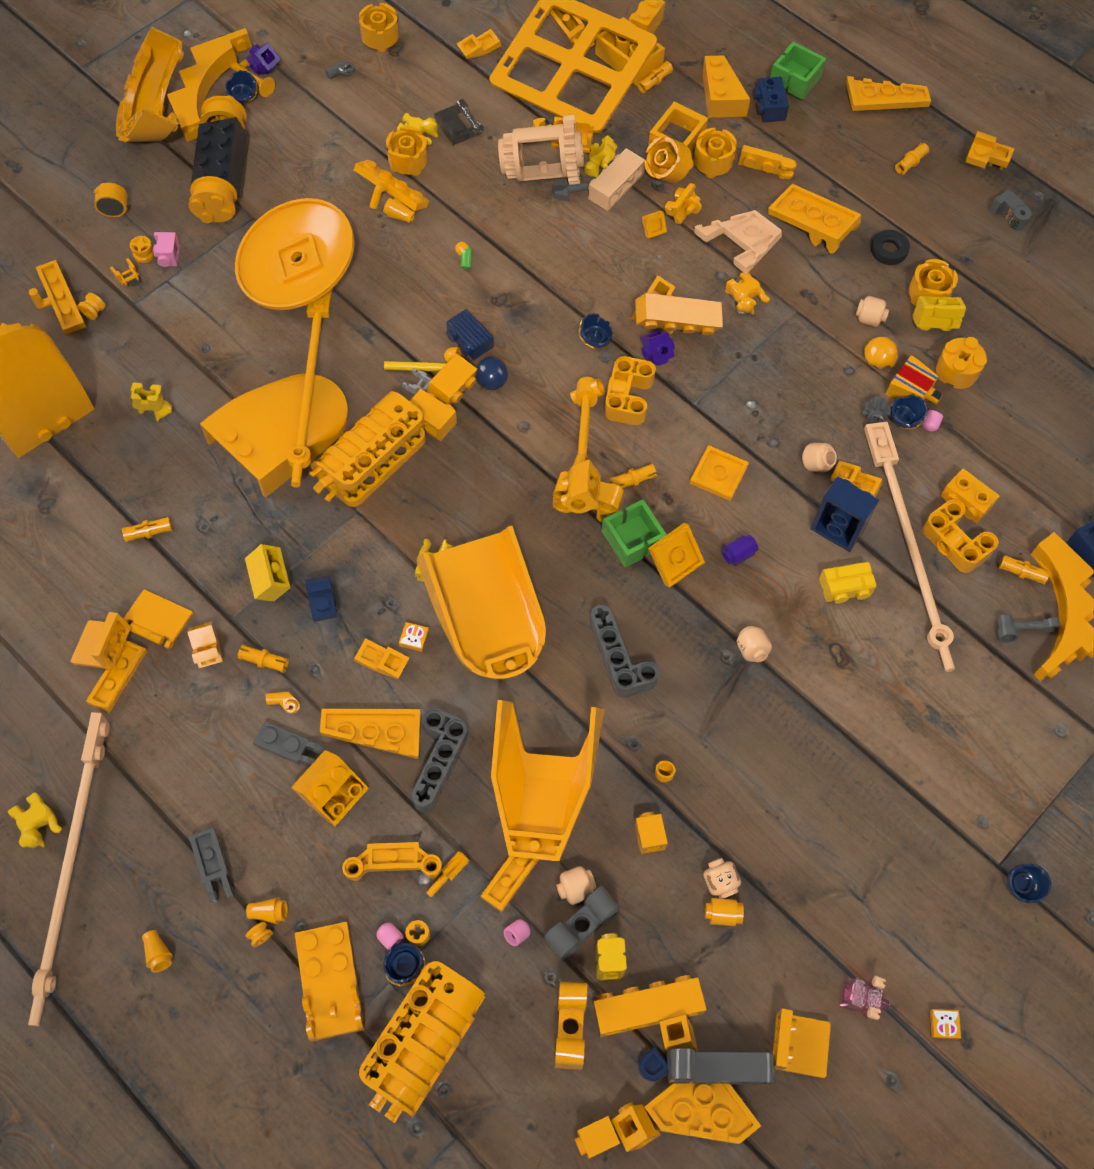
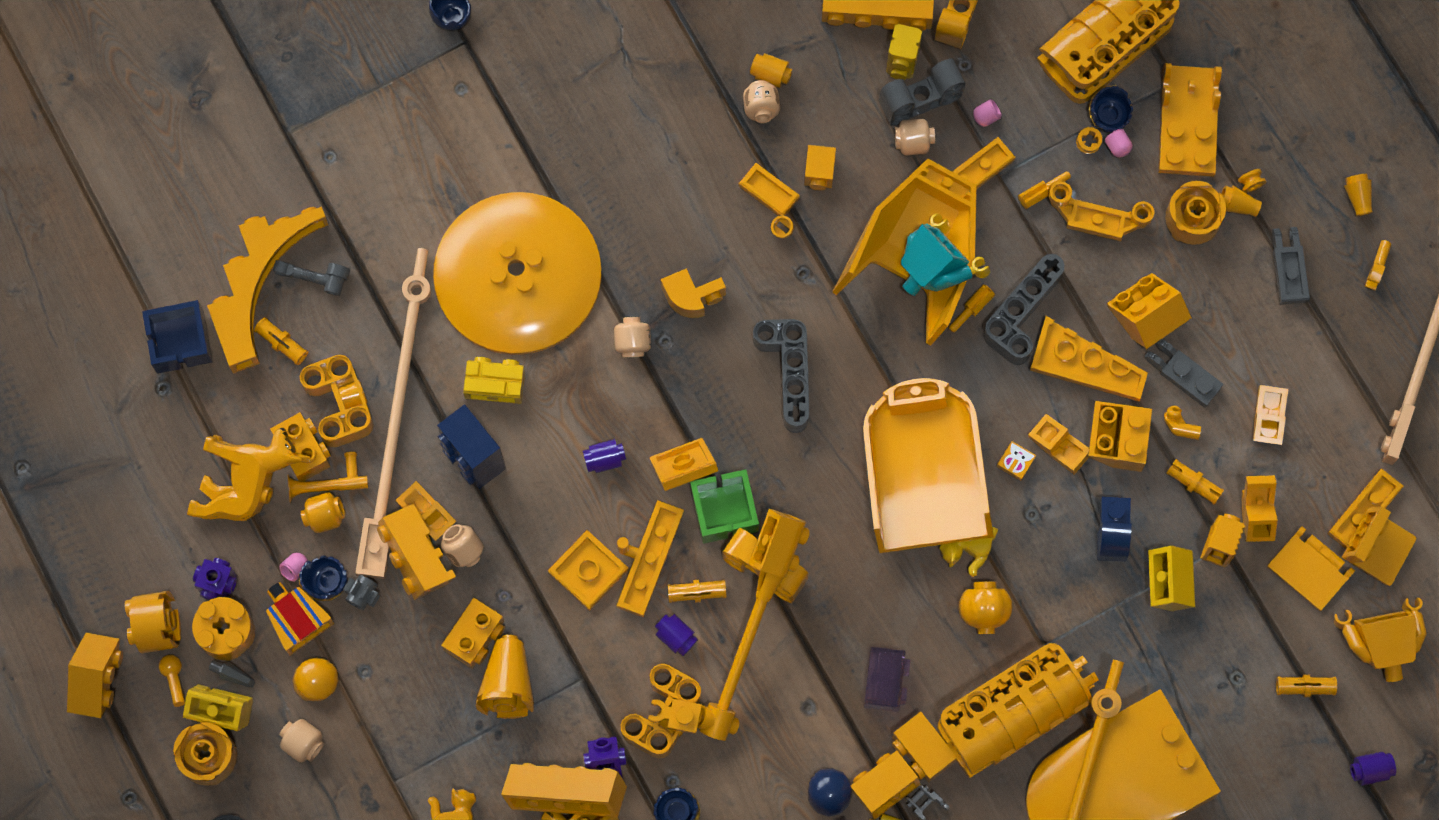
camera: 160 degrees left, 10 degrees up
(84, 573) = (1386, 639): none -> light orange torso
(87, 484) = (1373, 768): none -> dark purple brick
(131, 877) = (1378, 266): none -> light orange bar
(209, 730) = (1270, 415): none -> slope
(230, 608) = (1223, 540): none -> light orange brick
(291, 879) = (1206, 202): none -> light orange brick
(332, 672) = (1120, 435): none -> light orange slope
(410, 519) = (985, 607): none -> light orange plant
(472, 451) = (885, 679): none -> clear purple brick
(481, 753) = (973, 306): none -> light orange axle
(527, 764) = (935, 260): none -> teal torso
(614, 381) = (682, 715): none -> light orange plate
(637, 442) = (675, 634): none -> dark purple brick
(677, 488) = (648, 558): none -> light orange plate
(687, 804) = (769, 190): none -> light orange tile
(724, 689) = (687, 299): none -> light orange brick
(748, 378) = (506, 681): none -> light orange cone
(784, 405) = (473, 634): none -> light orange brick
(850, 437) = (413, 552): none -> light orange wedge
(861, 707) = (522, 310): none -> light orange dish
(921, 484) = (352, 481): none -> light orange piece
(930, 454) = (323, 512): none -> light orange head
(936, 342) = (231, 673): none -> dark grey bar
(983, 391) = (221, 586): none -> dark purple brick
(984, 337) = (170, 667): none -> light orange bar
(1002, 461) = (250, 477): none -> light orange animal
(1011, 350) = (153, 622): none -> light orange brick
(1036, 310) = (91, 675): none -> light orange brick

